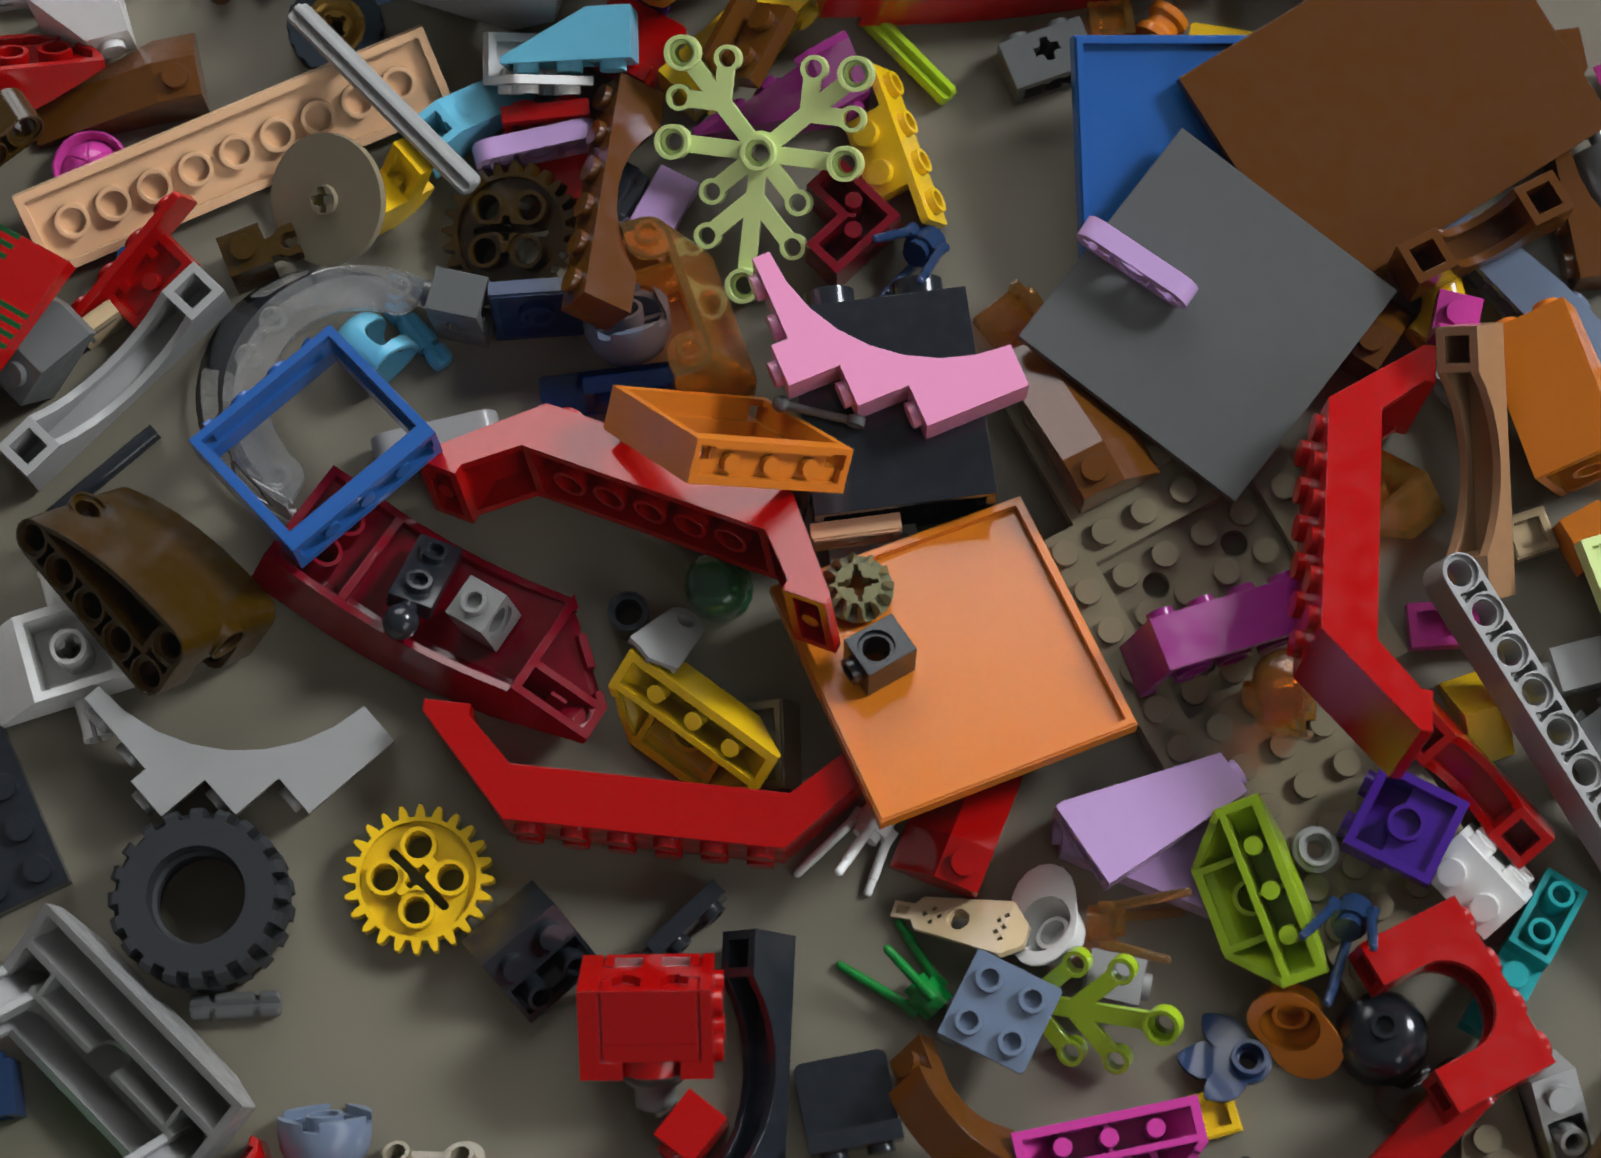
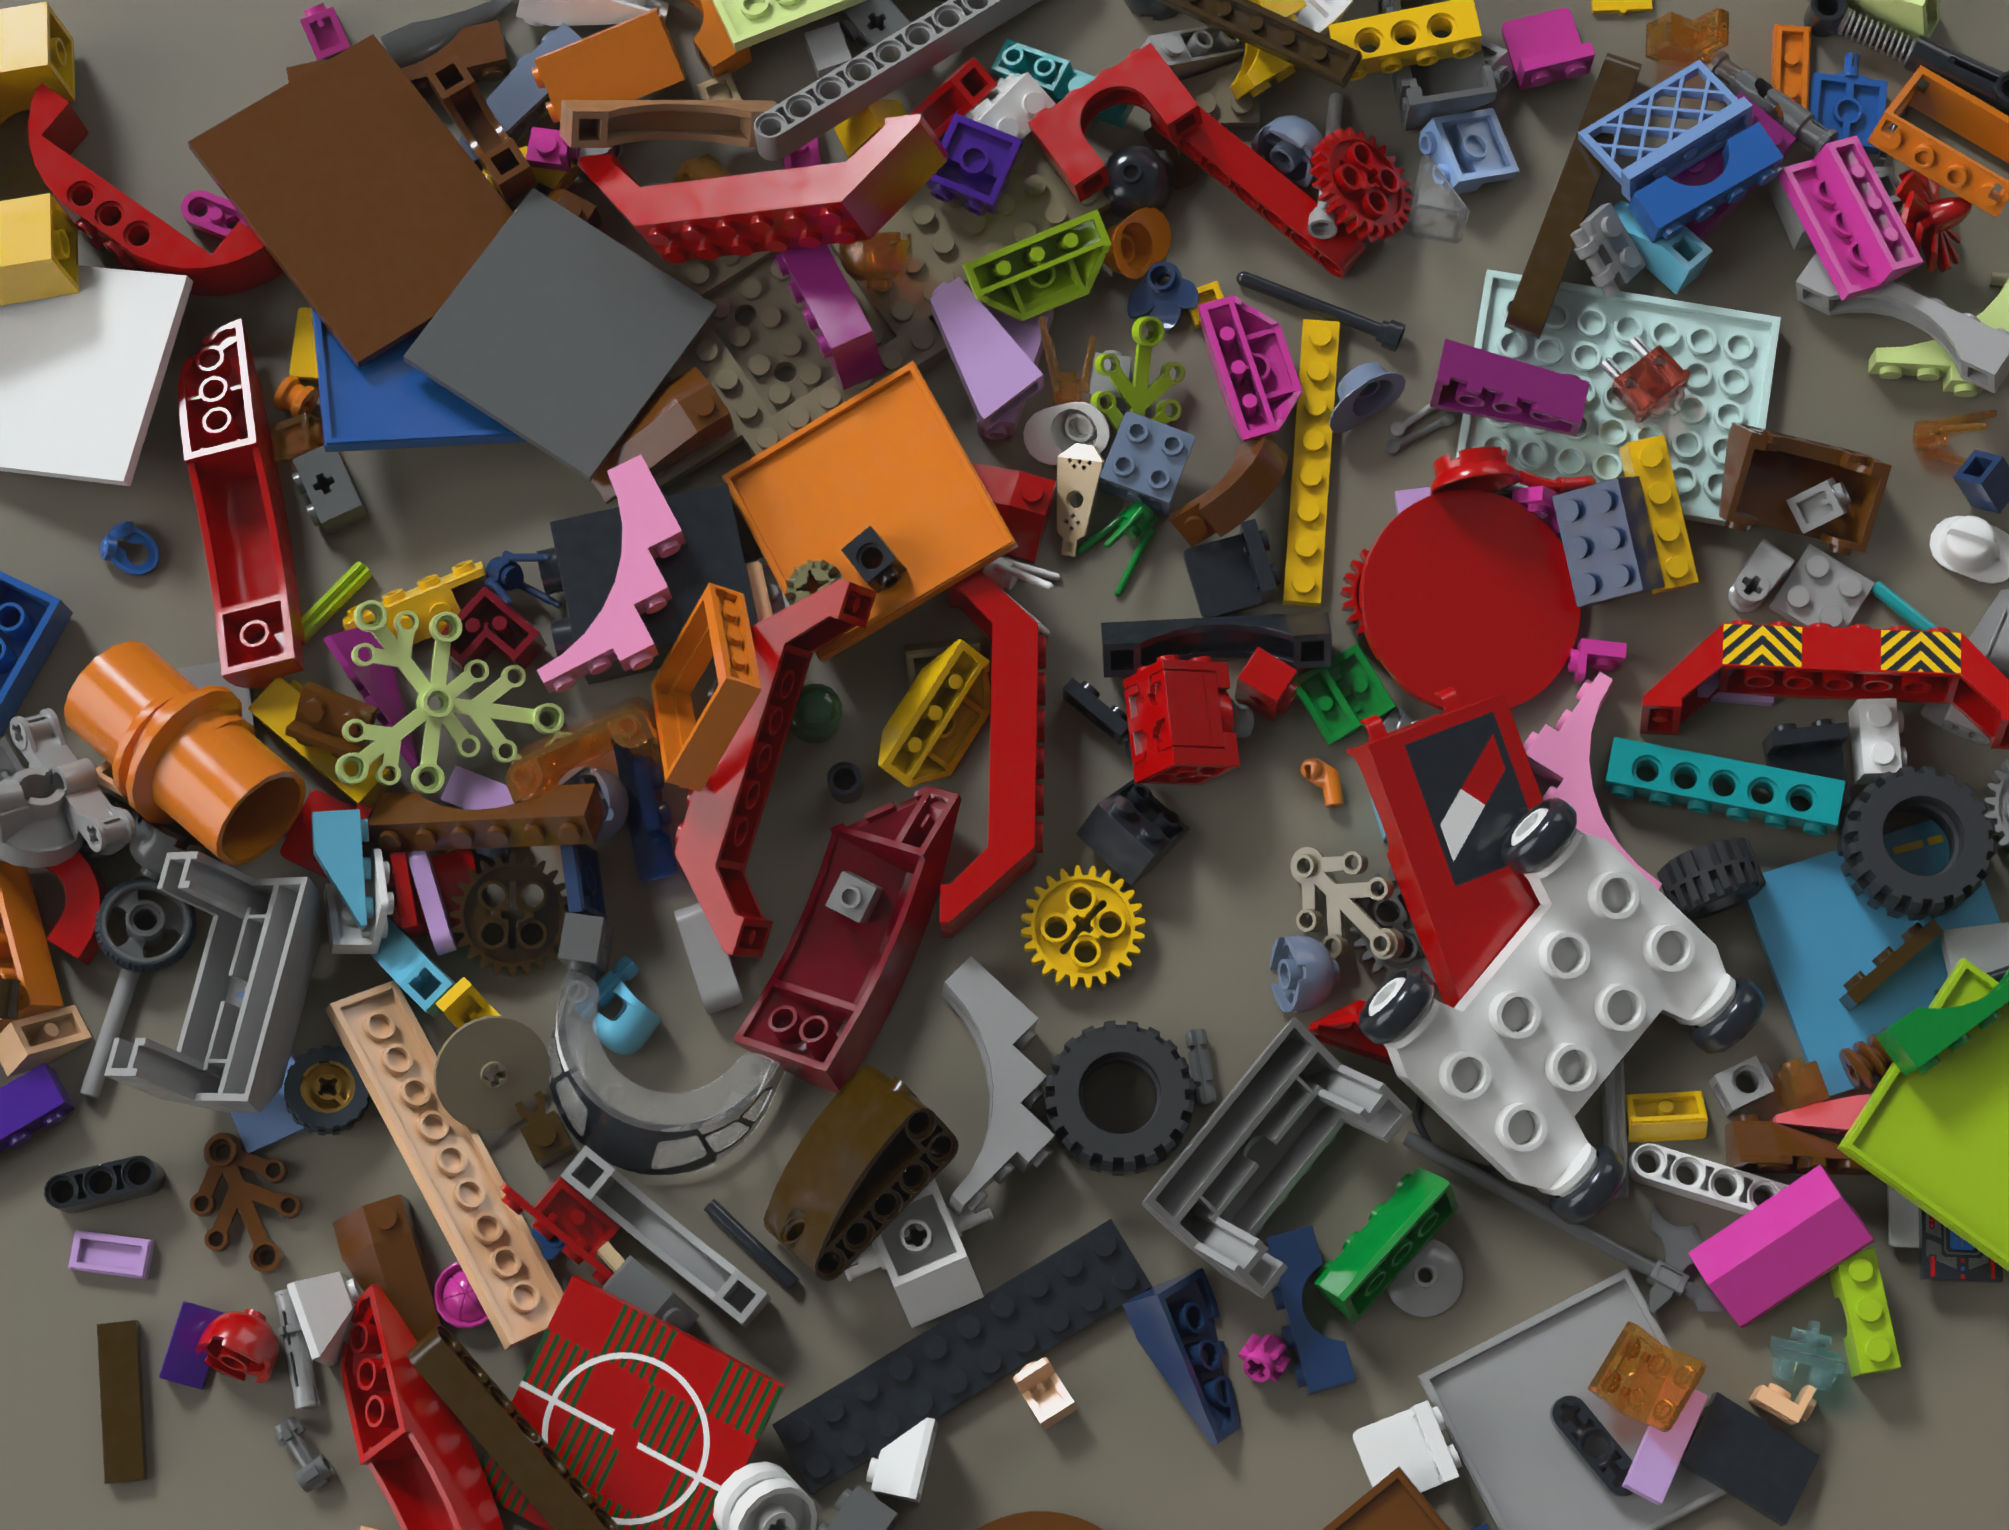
camera: 90 degrees left, 0 degrees up
(357, 496) = (671, 1075): blue window -> none
(384, 99) = (402, 1025): light grey axle -> none
(419, 586) = (836, 948): black plate -> none
(669, 638) = (864, 742): light grey piece -> none
(782, 404) = (663, 659): dark grey hinge -> none
(1008, 315) = (559, 497): clear orange bracket -> none
(1137, 262) = (525, 382): lavender beam -> none
(1317, 835) = (996, 221): light grey plate -> none
(1350, 920) = (1051, 199): dark blue plant -> none

